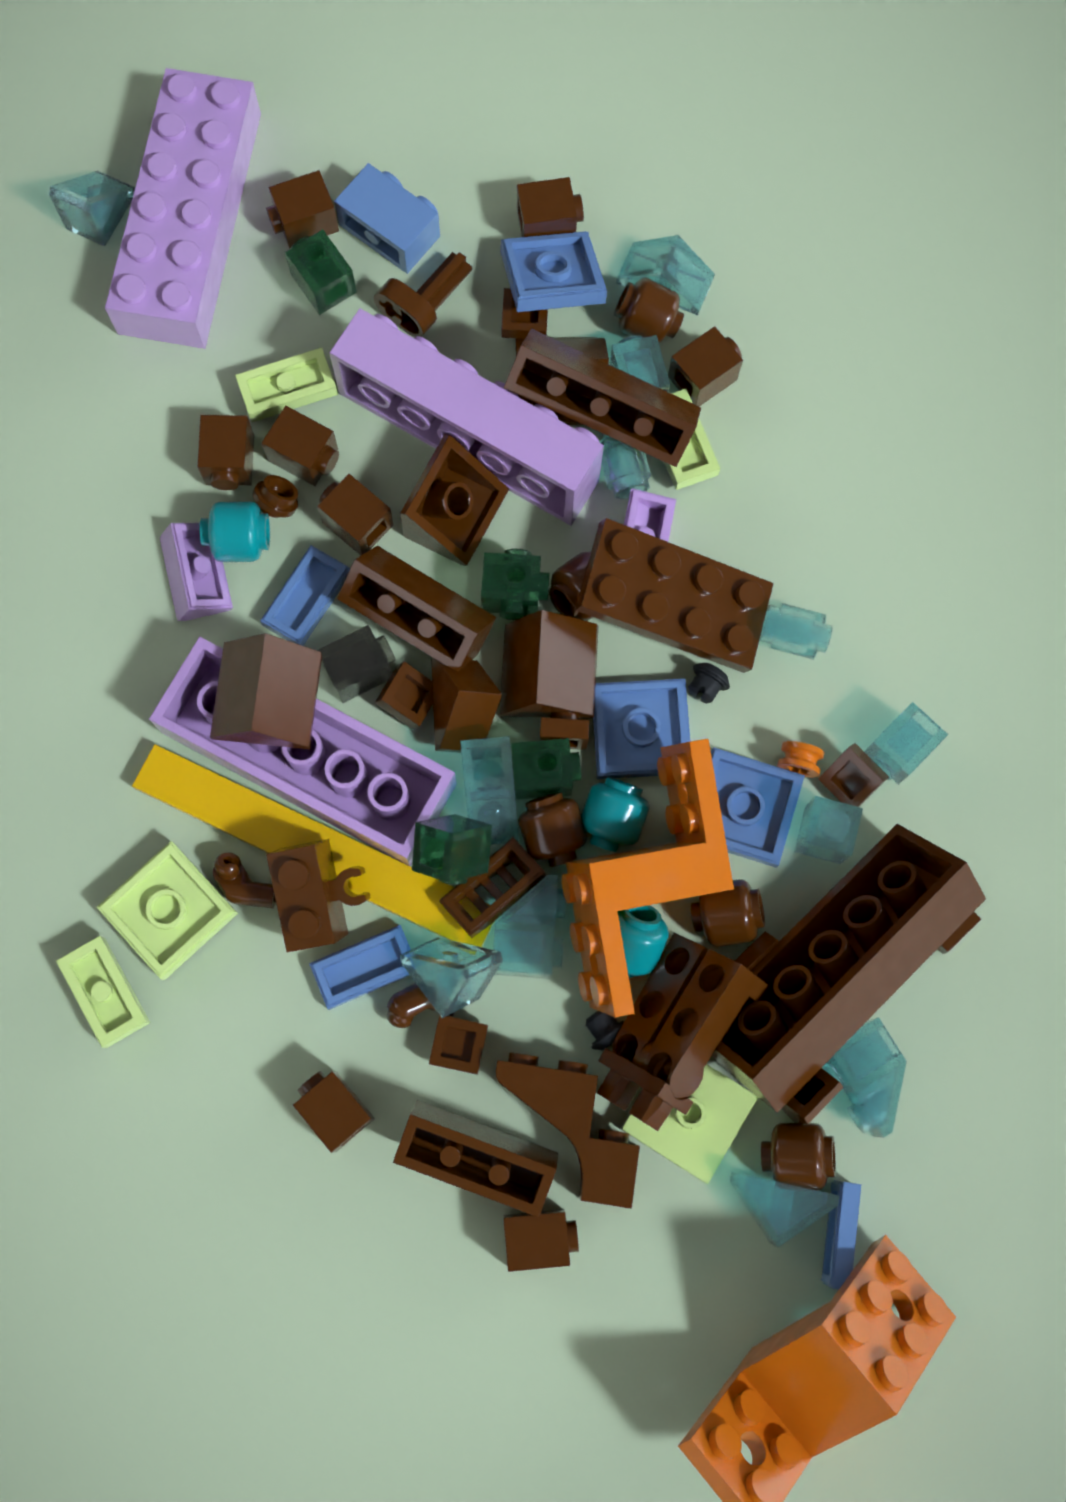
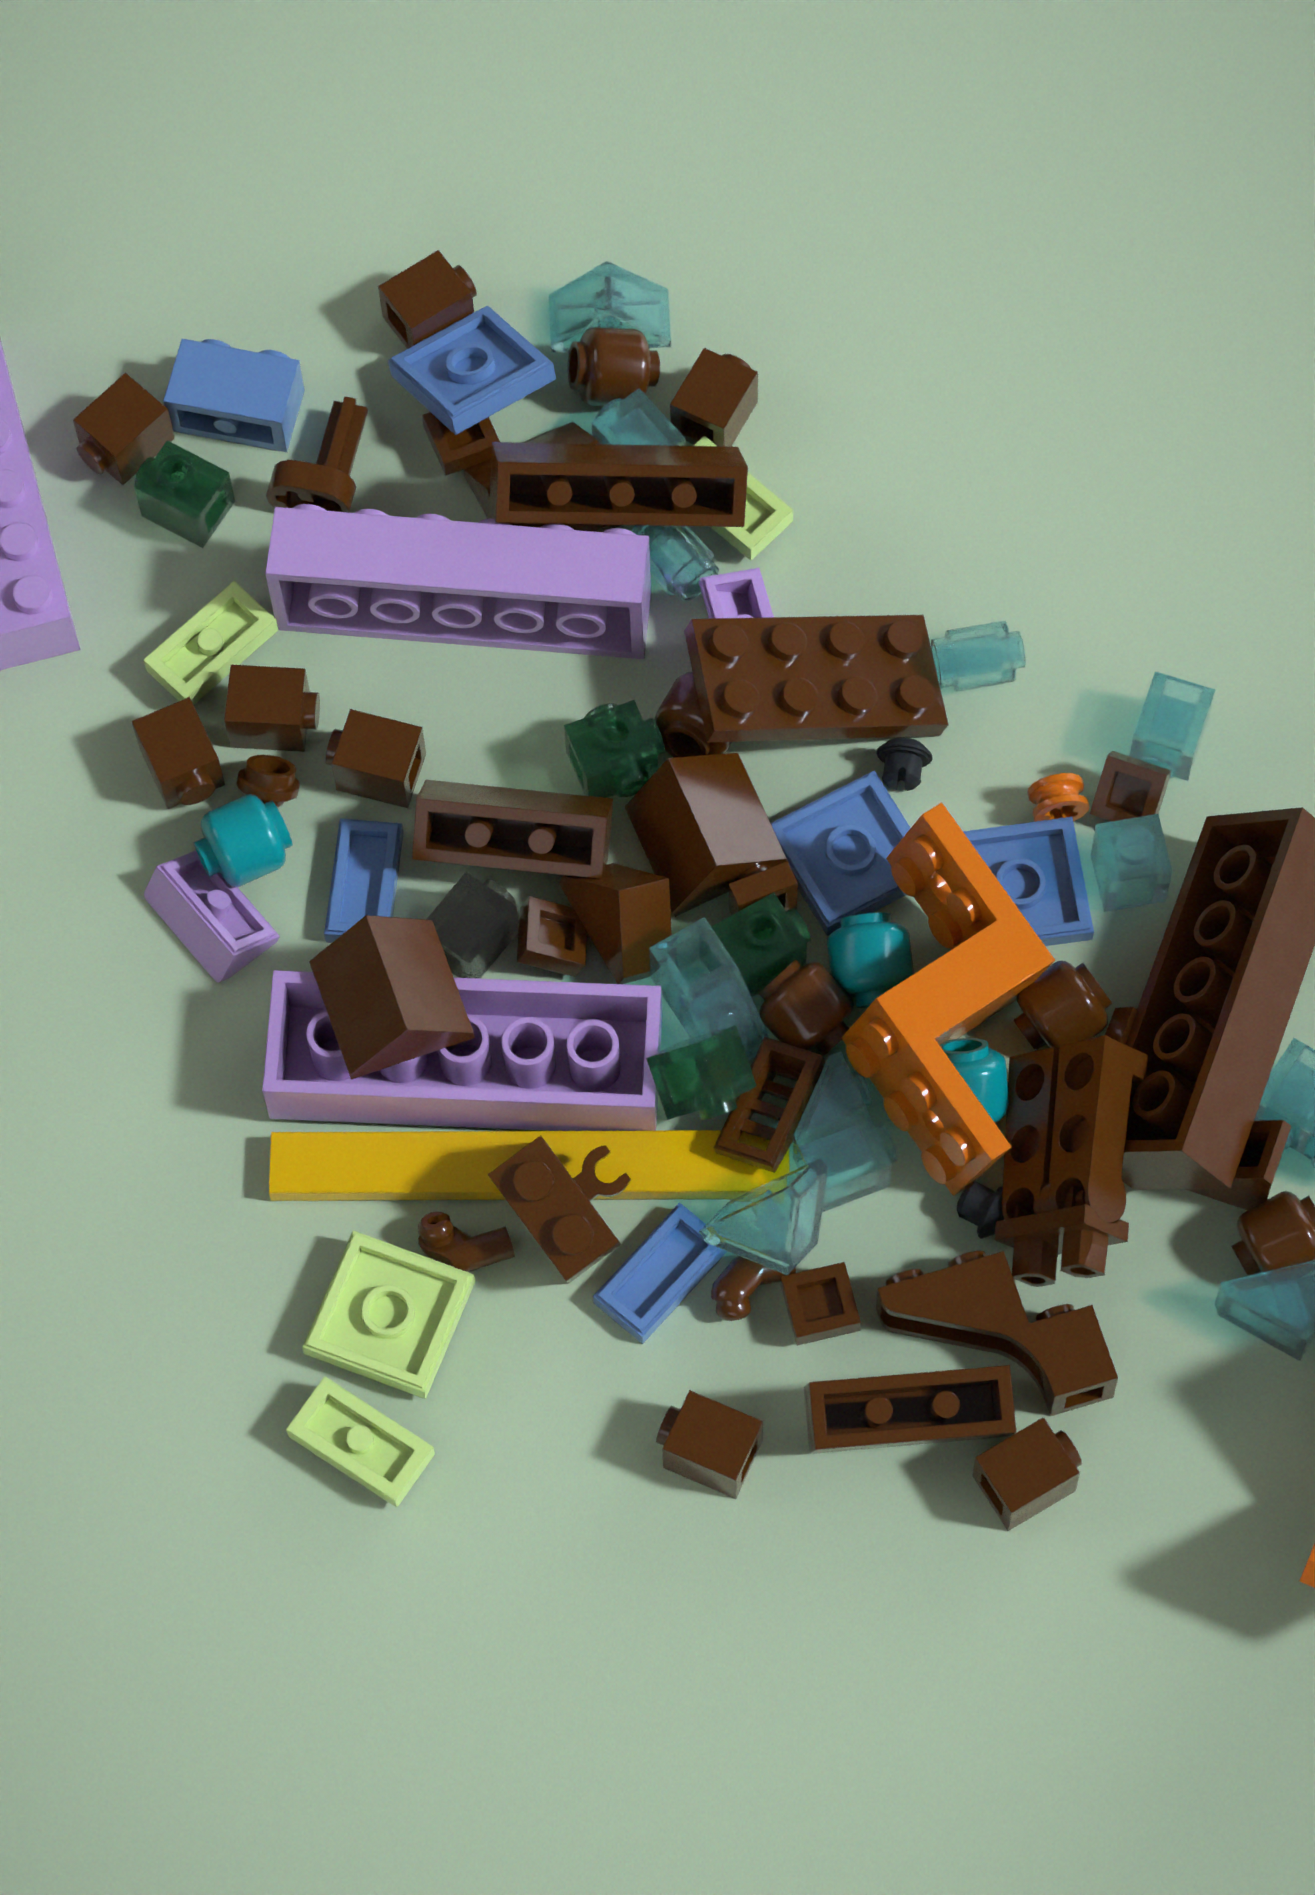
camera: 20 degrees left, 10 degrees down
(452, 503) = (491, 693): reddish brown slope -> none
(706, 1132) = (1152, 1273): yellowish green plate -> none

